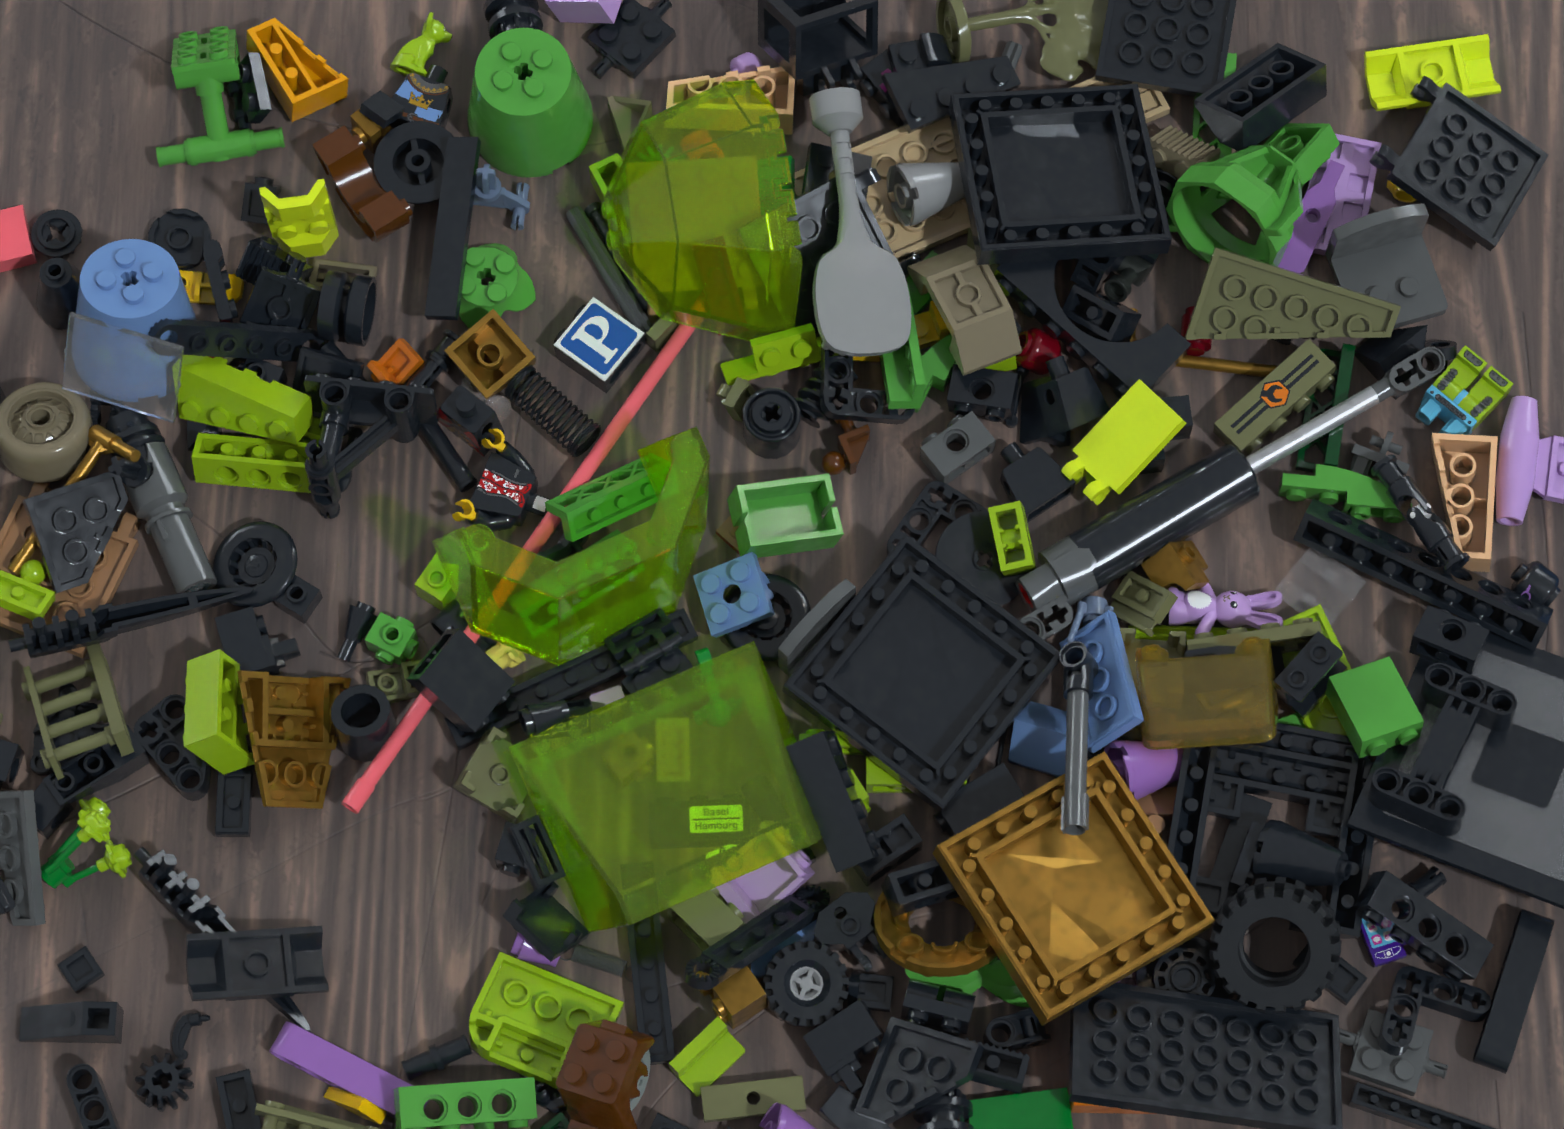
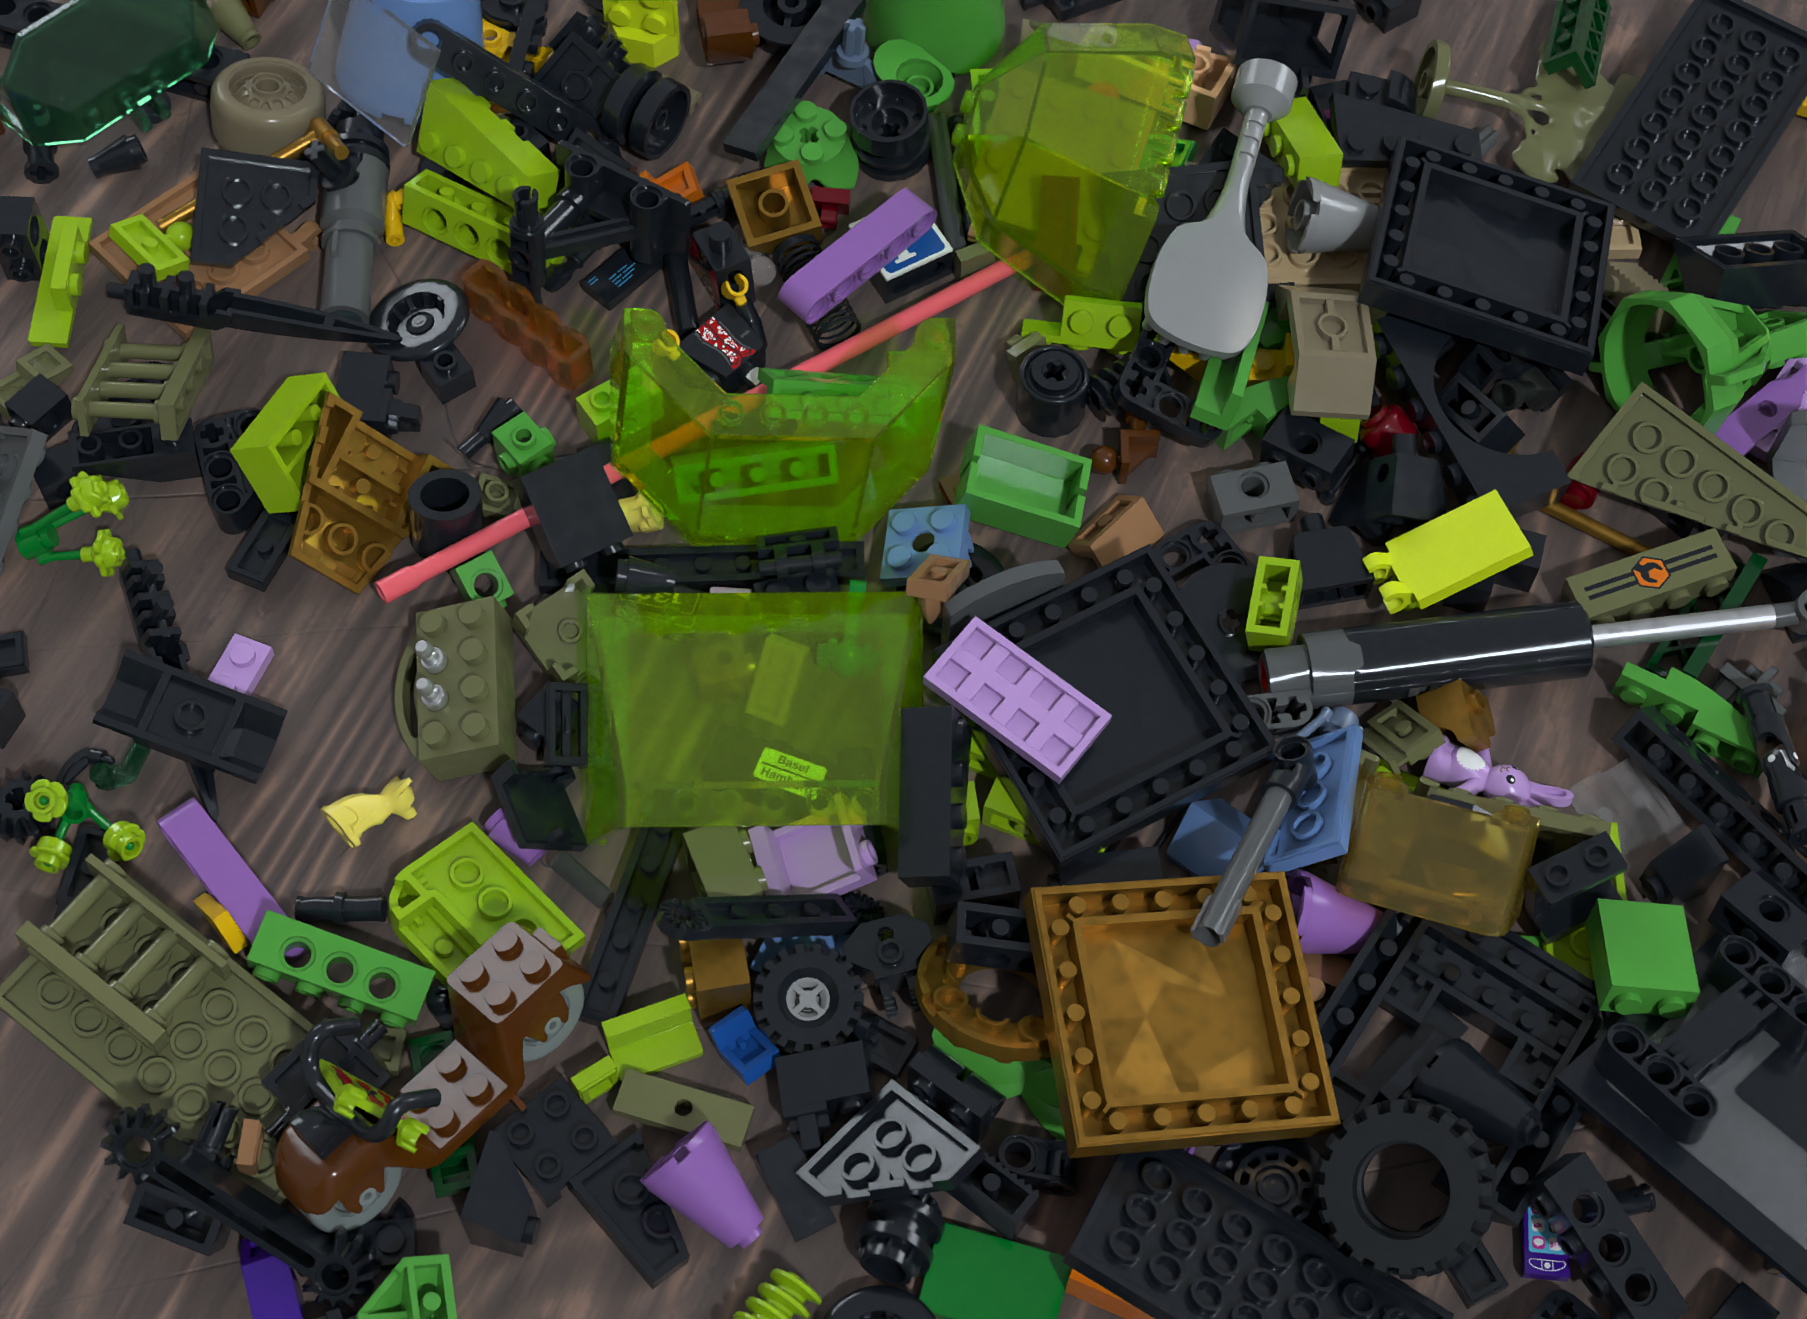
camera: 20 degrees right, 10 degrees down
(184, 468) = (393, 223): none -> yellow arm
(199, 1071) = (51, 800): none -> lime plant
(220, 1024) = (120, 774): none -> clear green arm
(264, 904) = (242, 664): none -> lavender plate
(351, 535) = (528, 324): none -> clear orange brick
(388, 463) = (618, 278): none -> black tile
(415, 979) = (361, 811): none -> light yellow animal
(430, 767) = (486, 565): none -> bright green brick
(441, 855) = (459, 689): none -> olive piece
(527, 327) = (831, 203): none -> dark red tile
(542, 229) = (890, 130): none -> black wheel
(543, 185) = (912, 64): none -> bright green piece
(577, 374) = (857, 256): none -> medium lavender beam
(681, 1103) = (595, 1079): none -> lime tile
(762, 629) = (936, 583): none -> medium nougat tile
(775, 1035) = (743, 1045): none -> blue bracket
(862, 701) = (1017, 699): none -> lavender plate
(869, 521) = (1117, 531): none -> medium nougat panel
(882, 130) = (1304, 145): none -> lime brick
(1379, 622) = (1684, 868): none -> black slope

